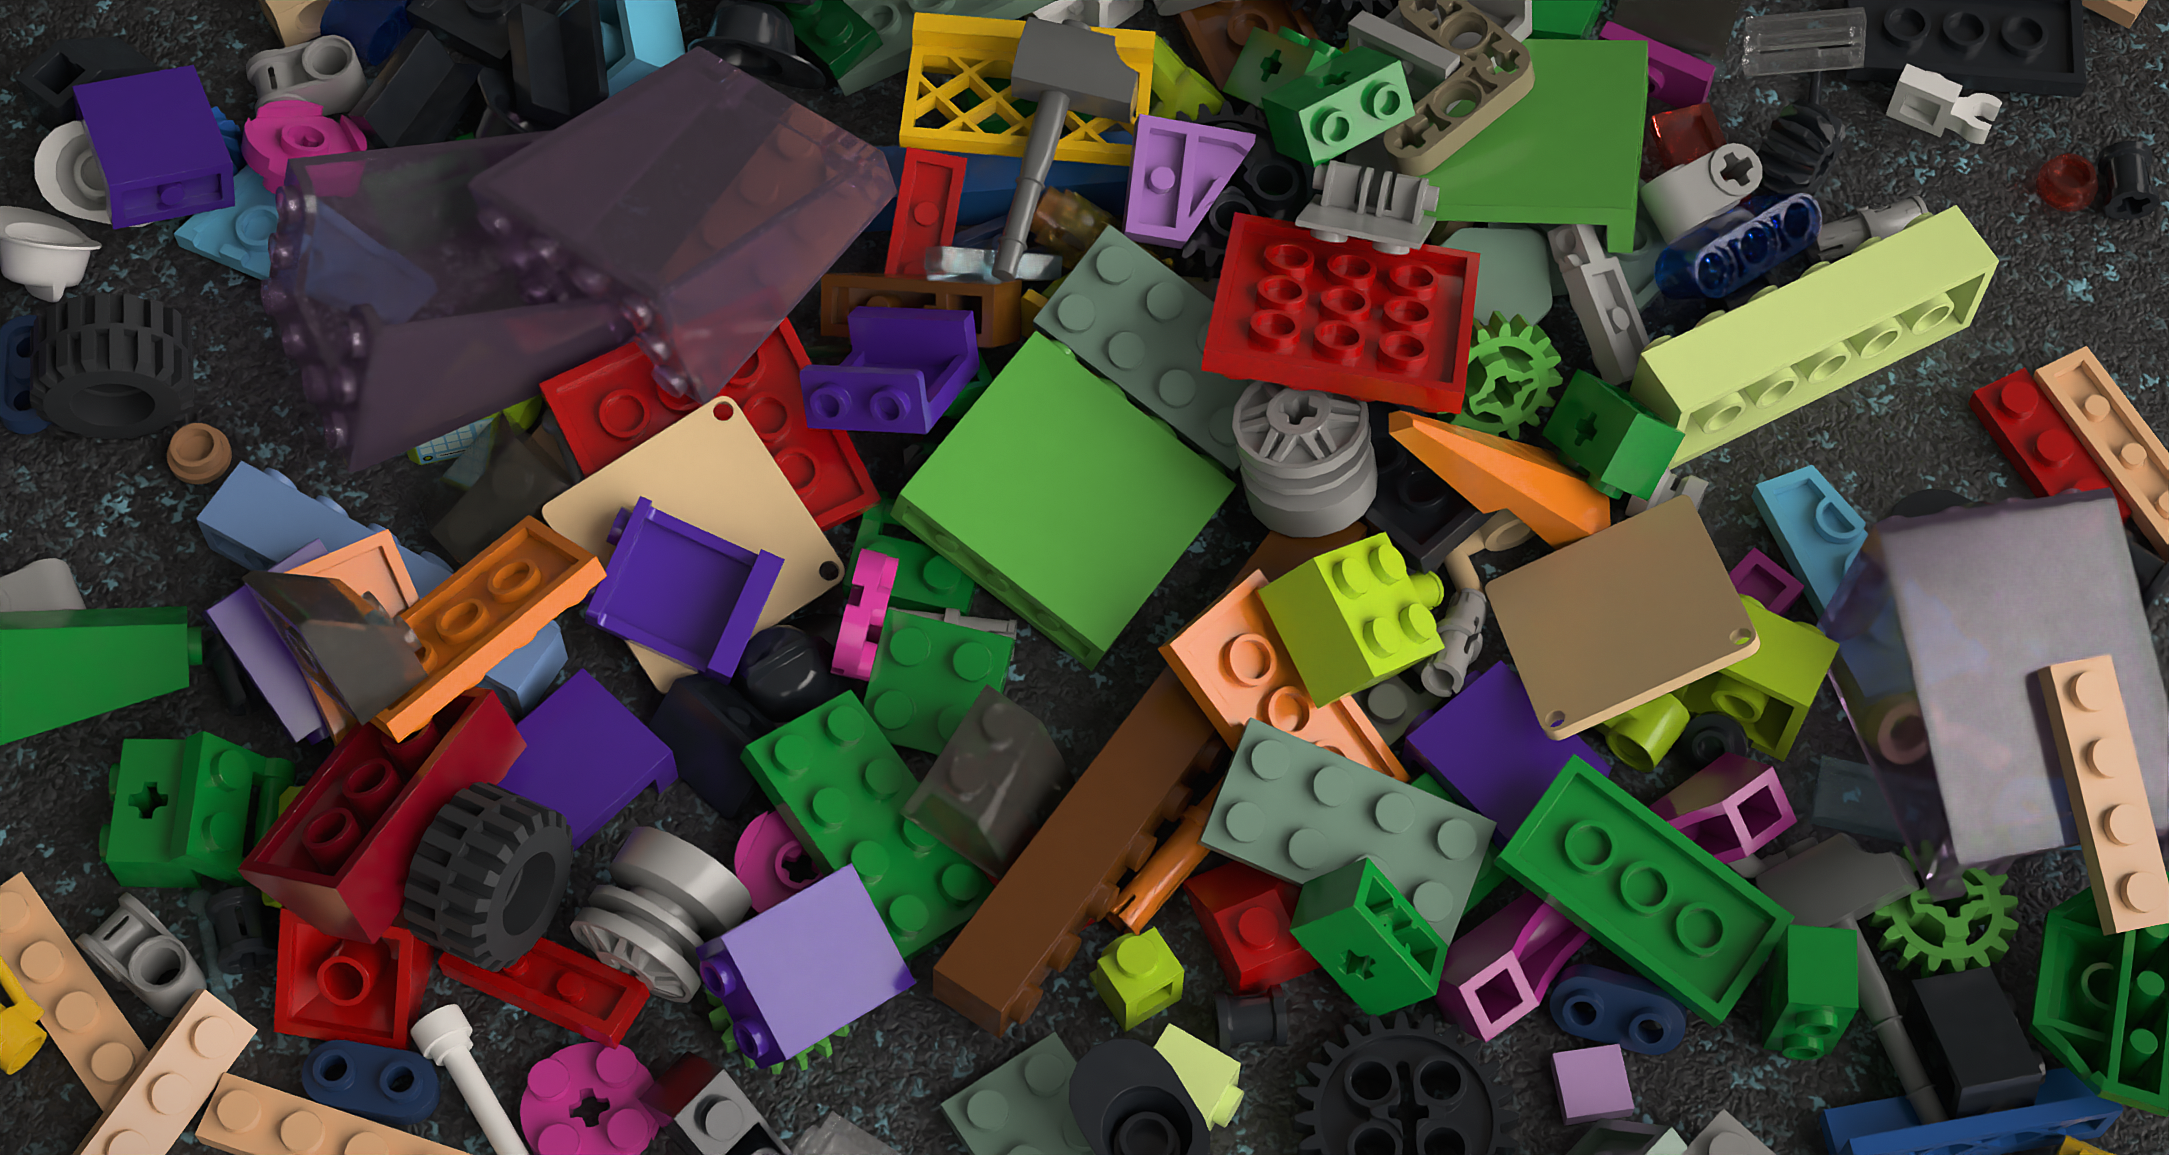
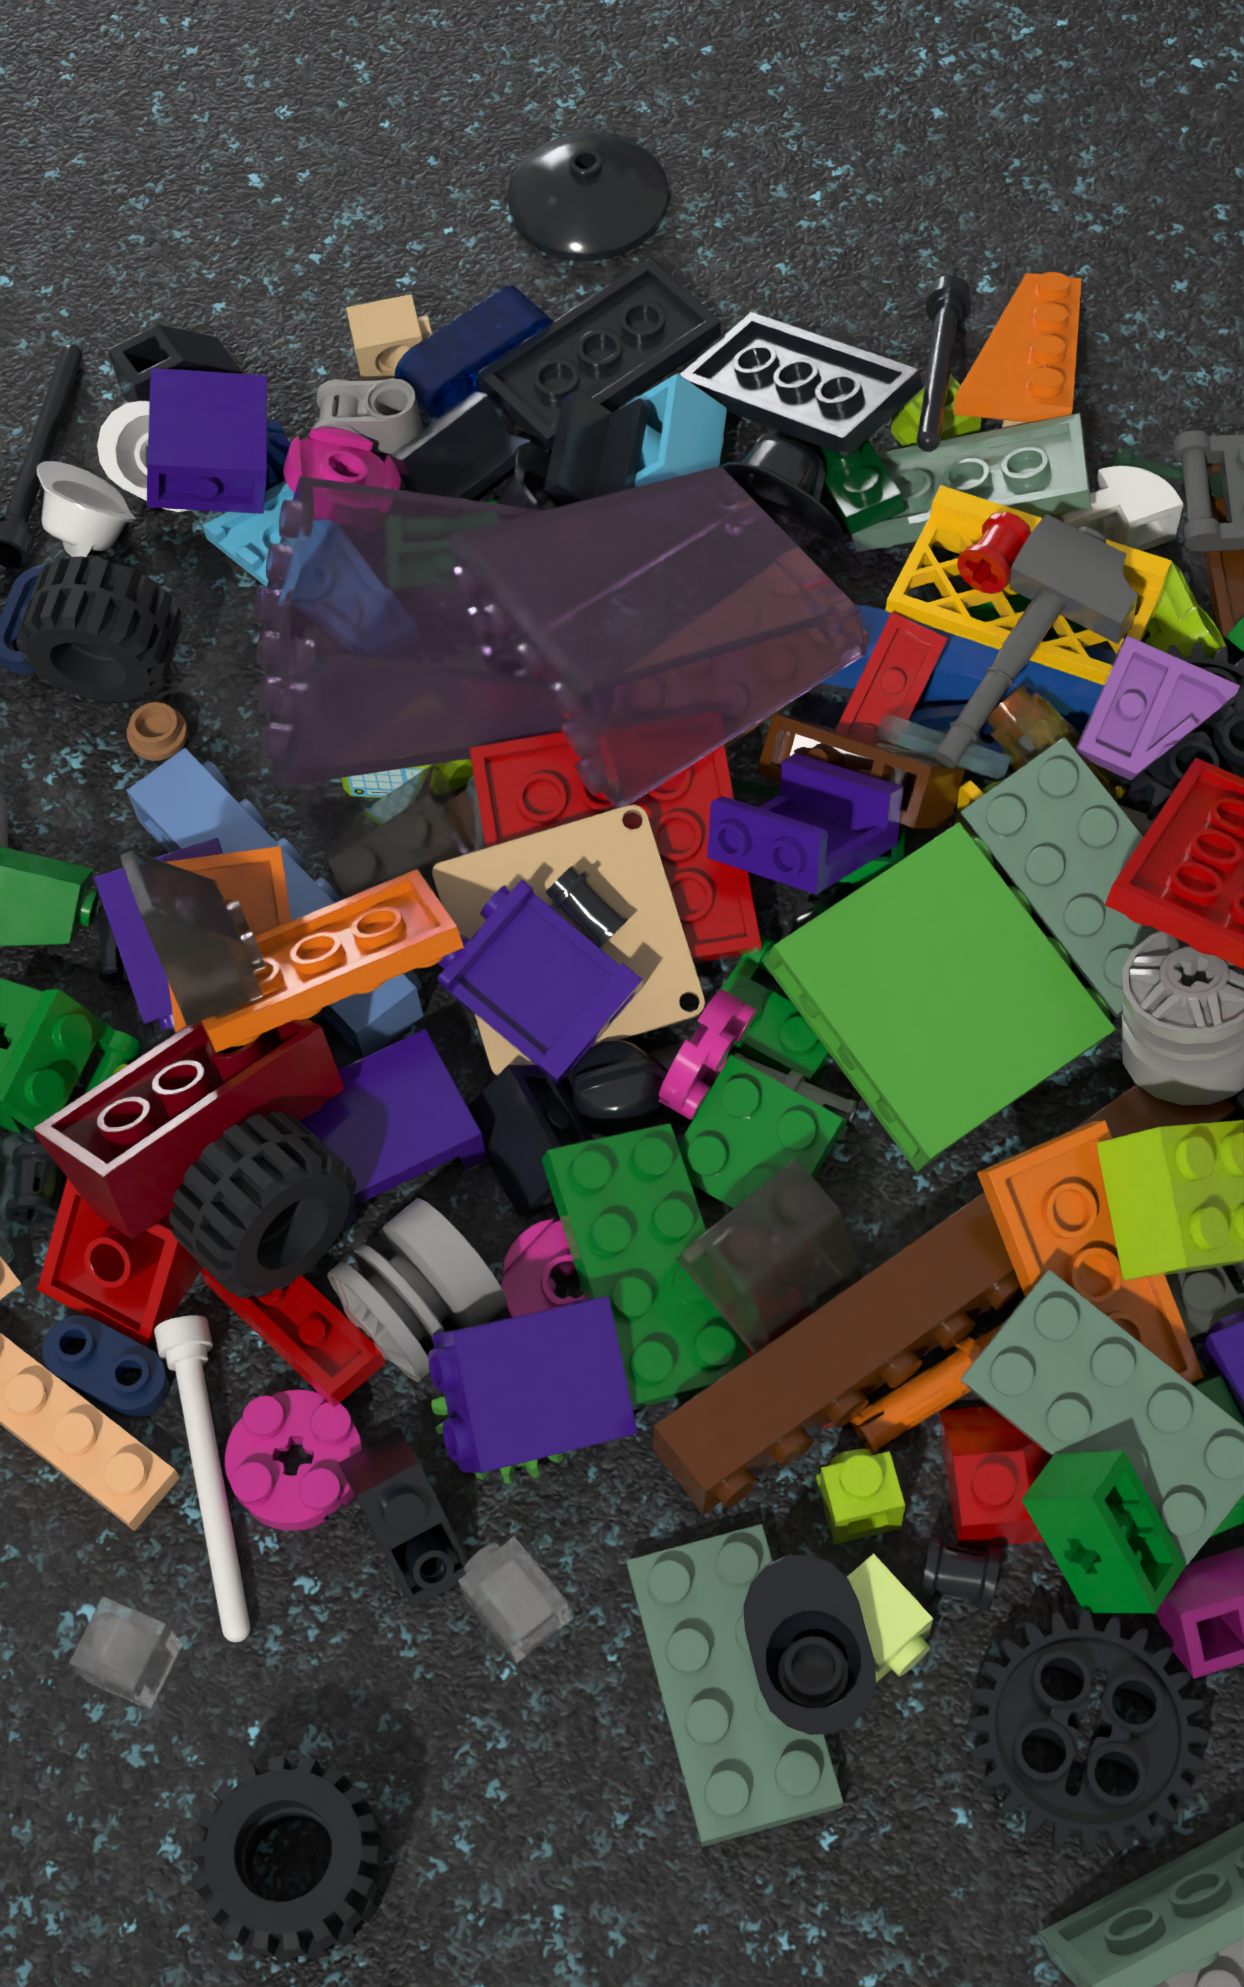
camera: 25 degrees right, 0 degrees up
(705, 505) = (586, 905): none -> black pin
(986, 75) = (989, 561): none -> red bush

